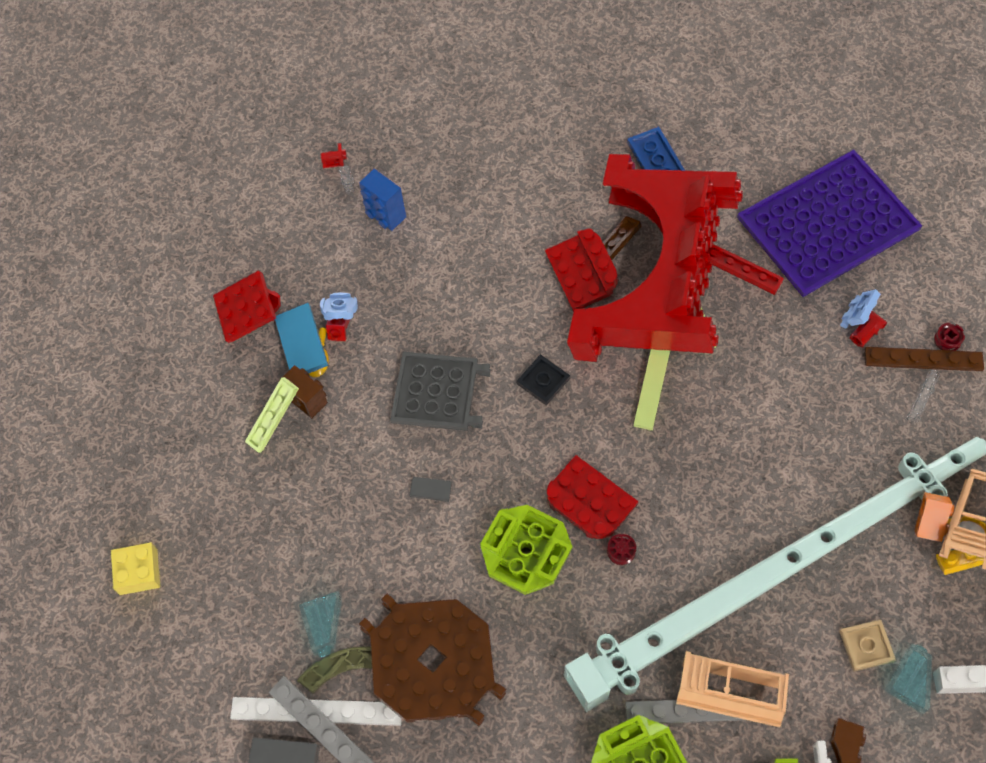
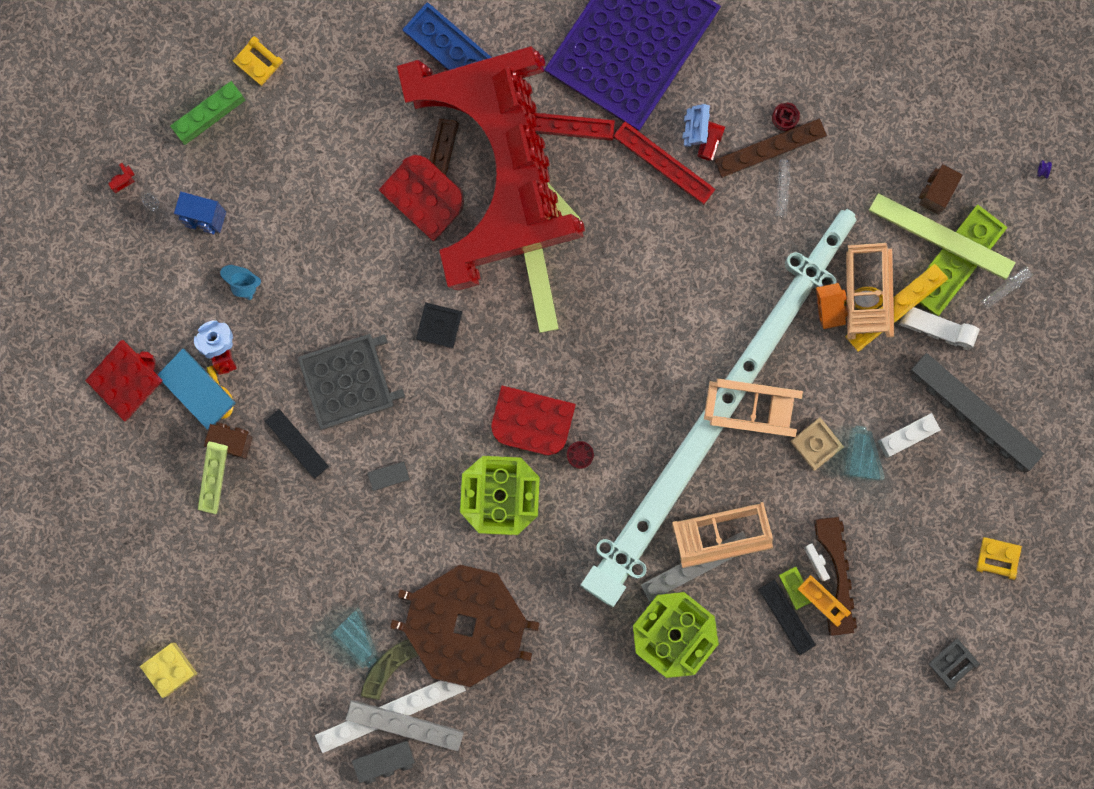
camera: 30 degrees left, 20 degrees up
(363, 425) = (297, 444): none -> black tile
(387, 272) = (241, 281): none -> dark azure piece
(432, 136) = (208, 113): none -> bright green brick
(488, 120) = (254, 66): none -> yellow plate
(816, 331) = (664, 163): none -> red plate
(846, 586) = (779, 412): none -> light nougat piece

